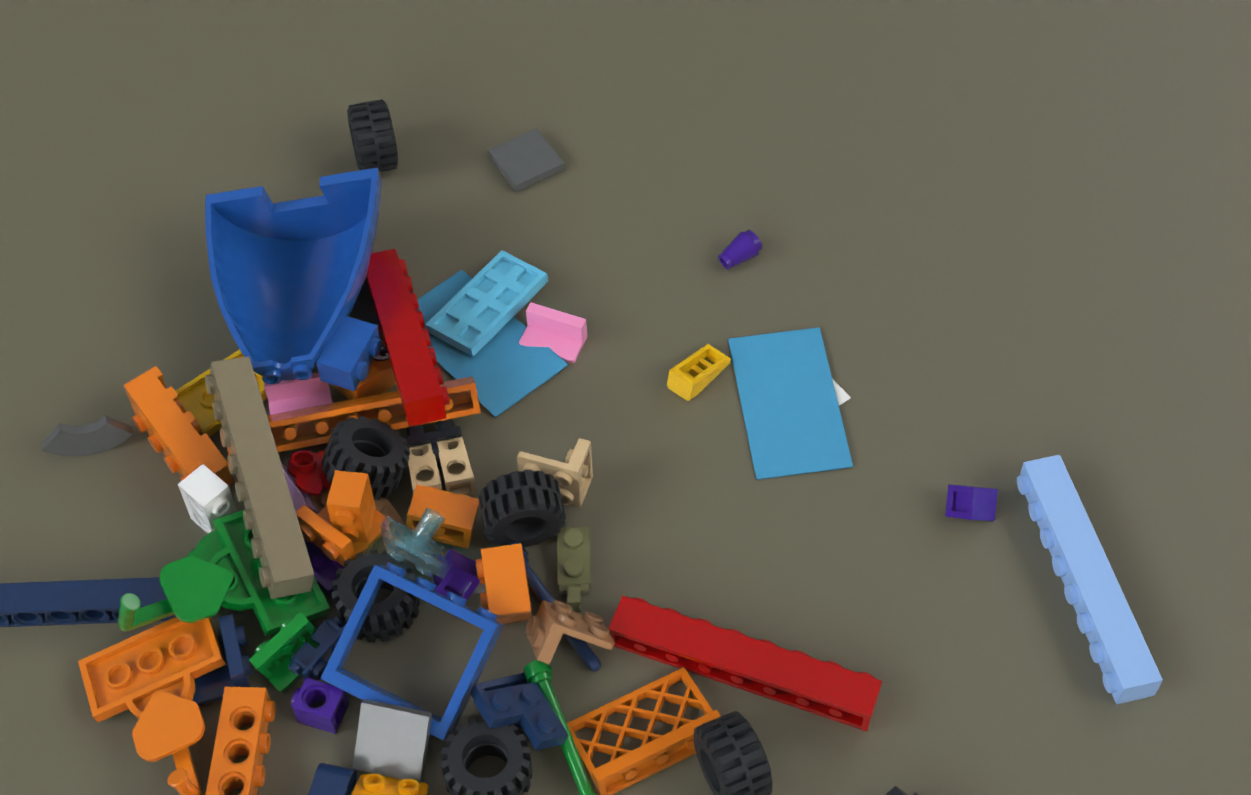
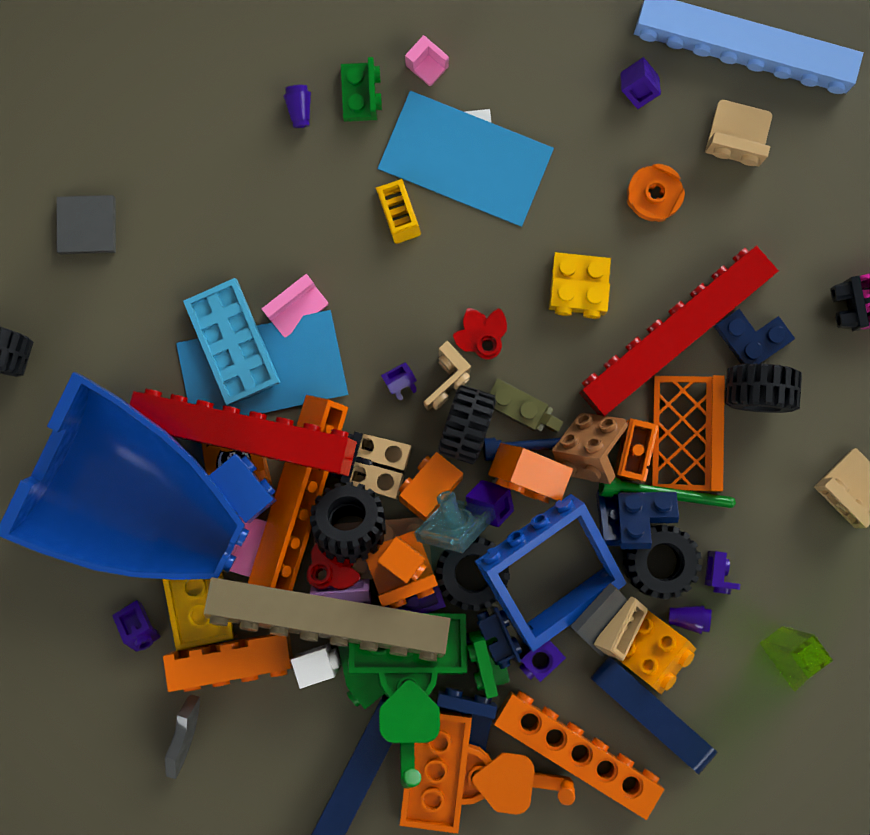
camera: 65 degrees left, 30 degrees up
(174, 355) = (135, 627): none -> dark purple bracket
(382, 747) = (622, 630): none -> tan slope
(534, 444) = (398, 379): none -> dark purple tile
(590, 679) = (635, 450): none -> orange brick
(629, 492) = (479, 330): none -> red plate
(731, 553) = (580, 285): none -> yellow plate
(784, 751) = (752, 345): none -> dark blue plate
(789, 289) = (359, 91): none -> green bracket
(854, 321) = (426, 60): none -> bright pink panel
(868, 588) = (660, 208): none -> orange plate
(990, 616) = (739, 133): none -> tan bracket

